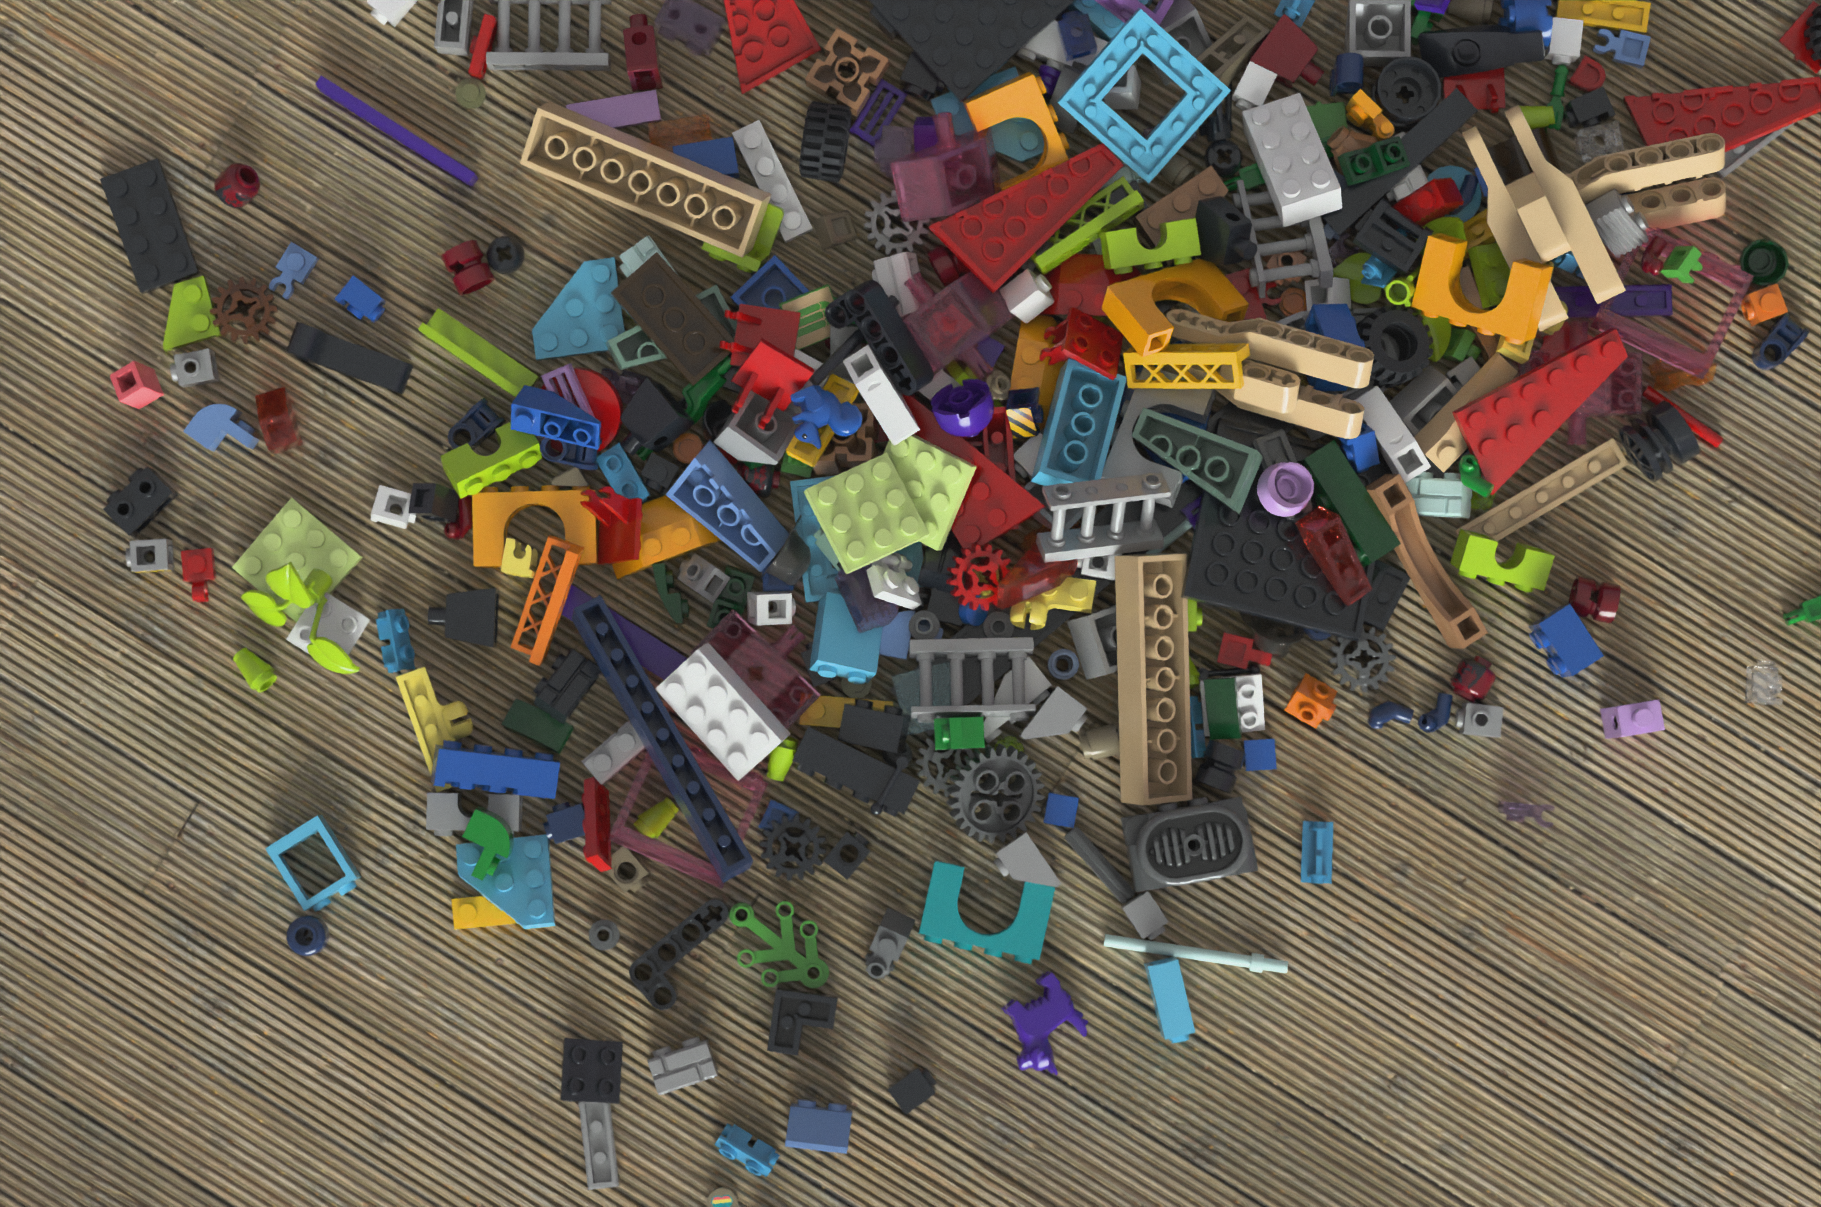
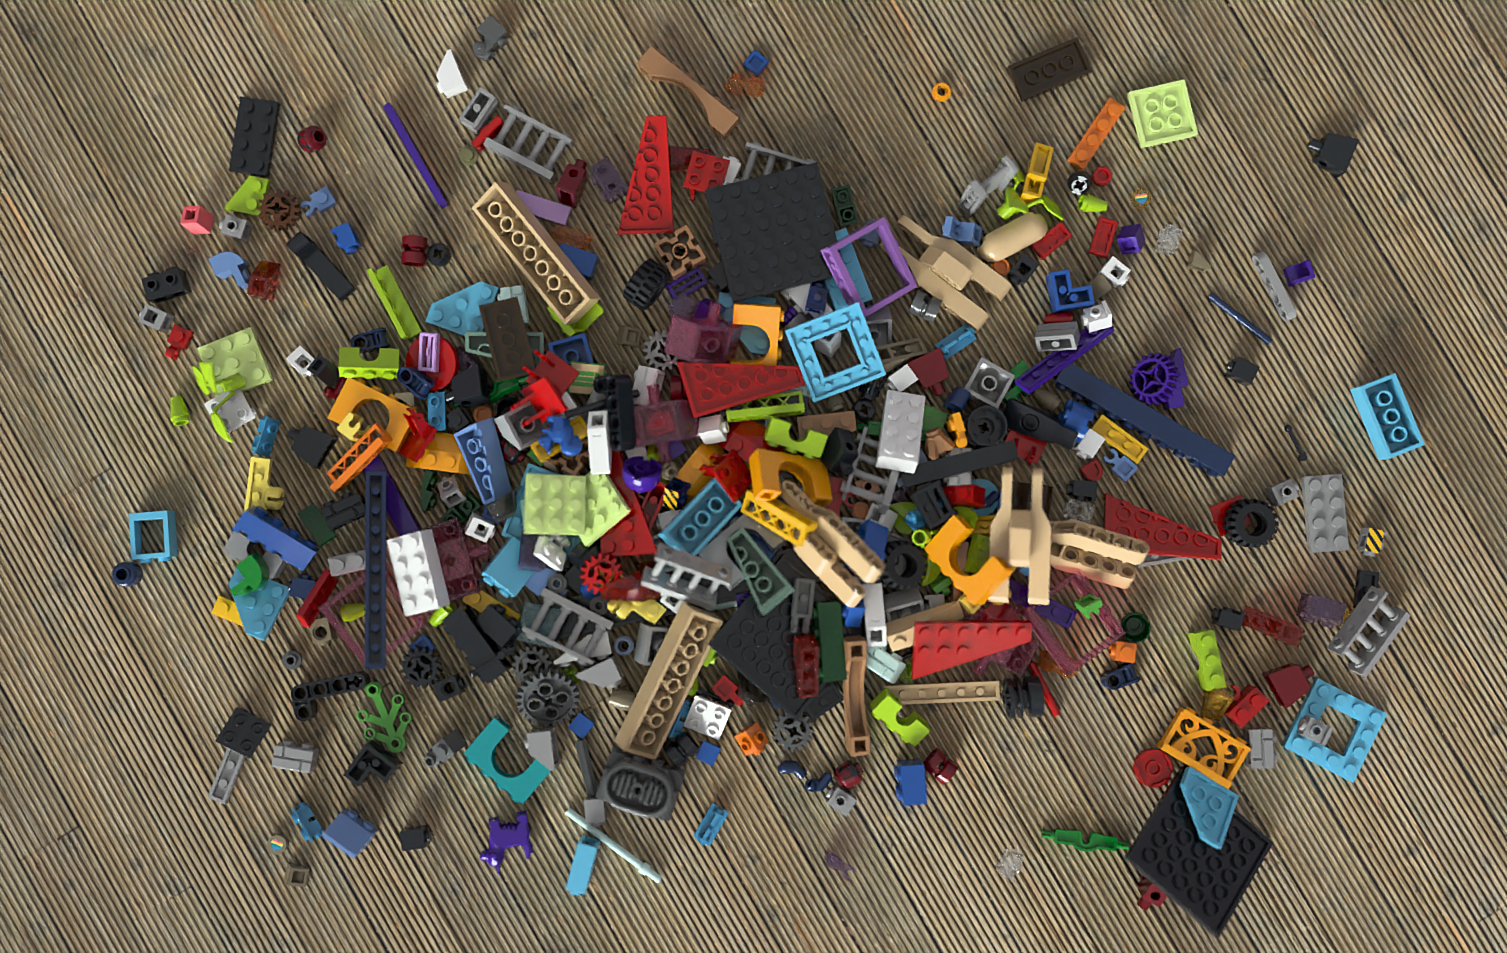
camera: 25 degrees right, 0 degrees up
(553, 417) = (412, 358): blue slope -> none
(772, 178) = (608, 290): white plate -> none
(959, 733) = (542, 654): green brick -> none
(1222, 708) = (699, 717): dark green slope -> none
(1285, 488) = (797, 614): lavender piece -> none
(1373, 161) = (945, 456): dark green slope -> none
(1471, 476) = (906, 663): green arm -> none
(1538, 116) = (1051, 478): lime cone -> none
(1557, 92) = (1063, 479): green piece -> none
(1618, 223) = (1064, 563): light grey brick -> none
(1632, 719) = (927, 845): lavender torso -> none
(1650, 261) = (1073, 591): dark red arm -> none

